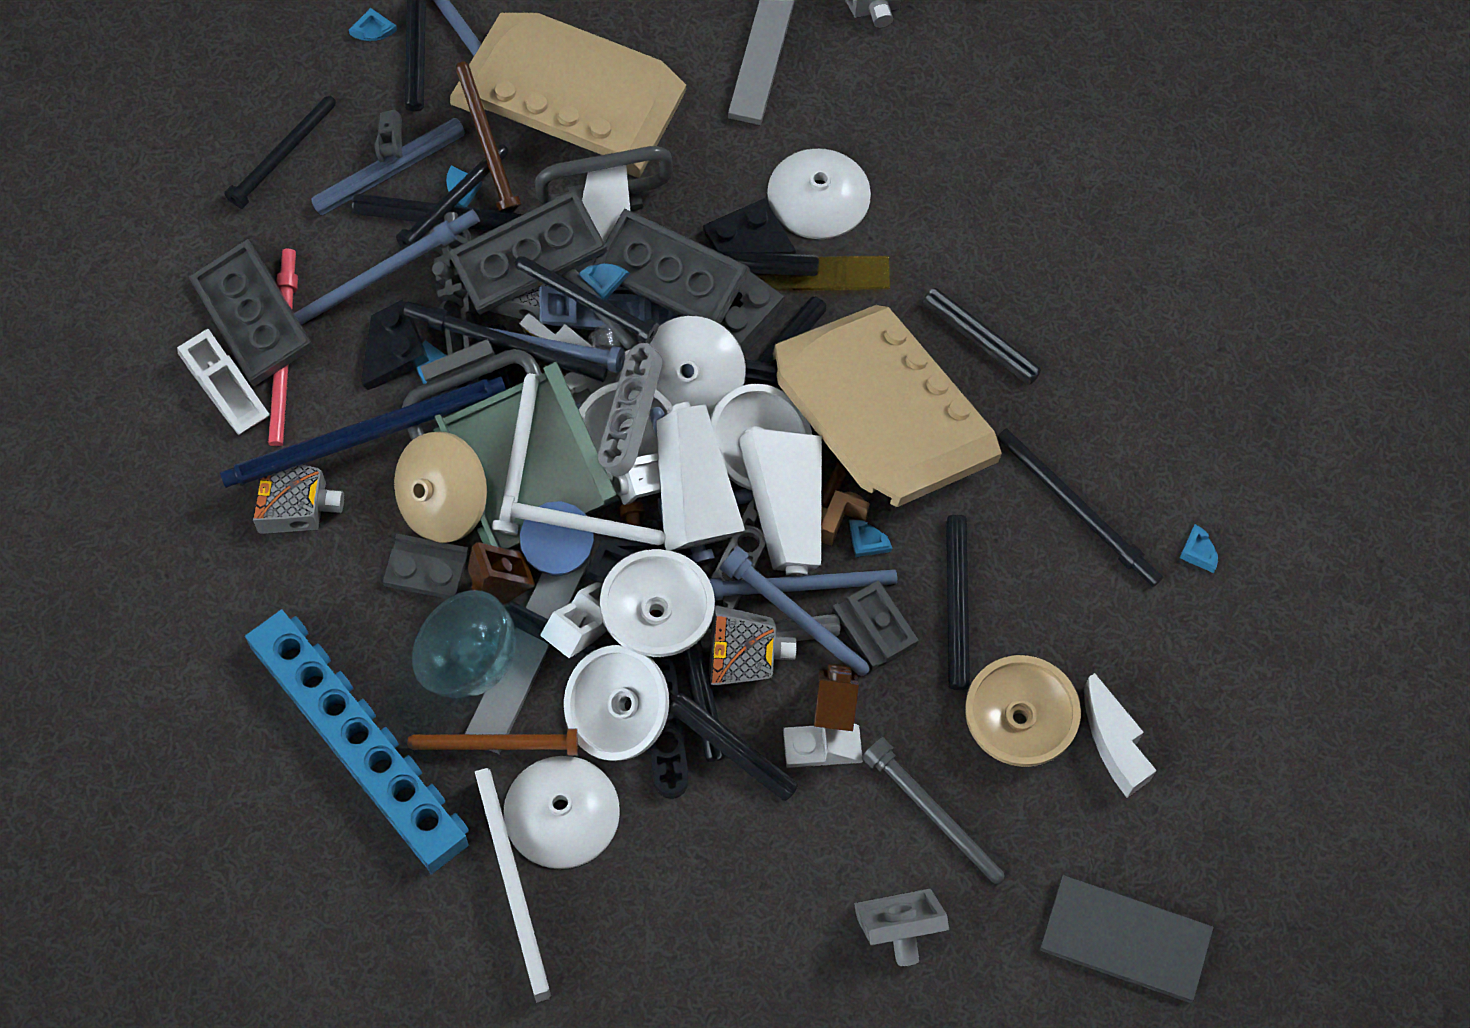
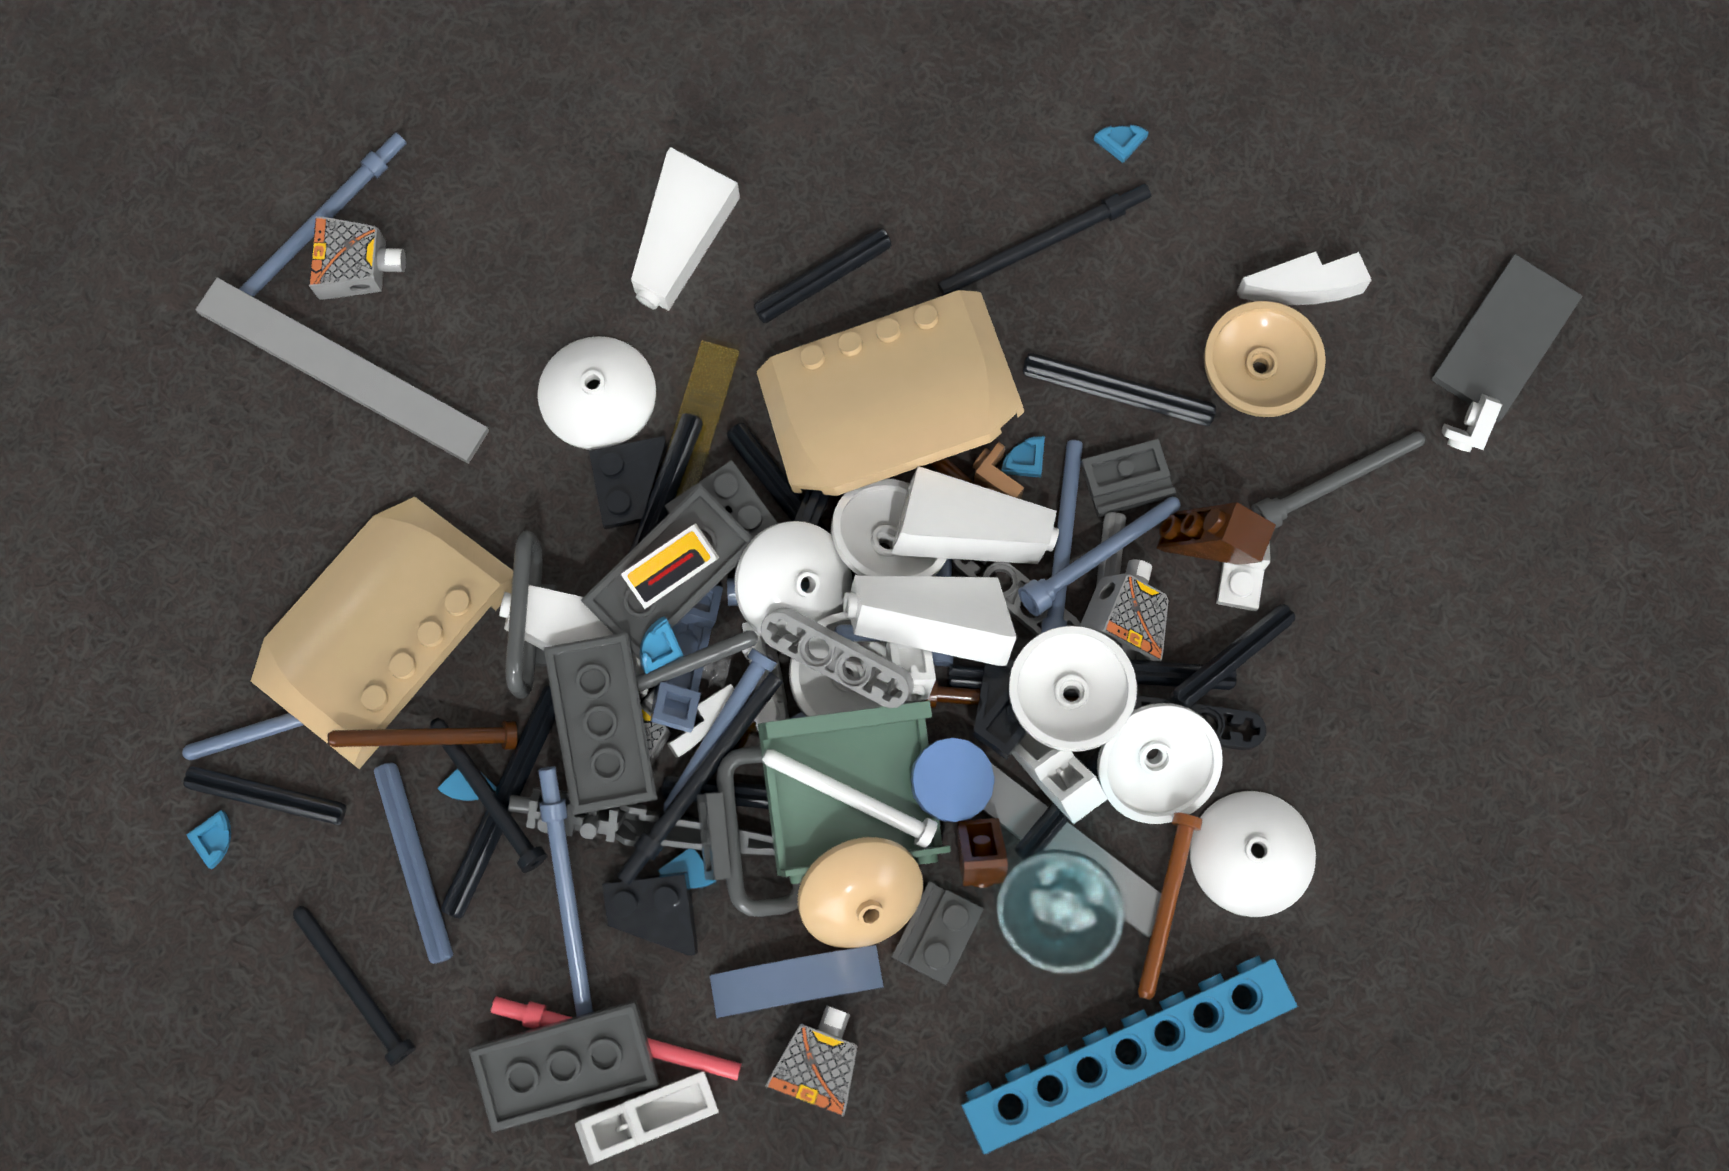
camera: 70 degrees left, 10 degrees up
(361, 432) = (772, 967): dark blue piece -> none
(363, 475) = (796, 980): none -> sand blue slope
(389, 135) = (378, 850): dark grey bar -> none
(513, 885) = (1328, 922): white tile -> none
(579, 522) = (918, 817): white bar -> none
(644, 330) = (746, 616): black bar -> none
(670, 261) = (670, 565): none -> slope
(901, 920) = (1455, 539): light grey tile -> none
(982, 213) = (681, 225): none -> white slope
(1024, 920) = (1480, 420): none -> white bracket

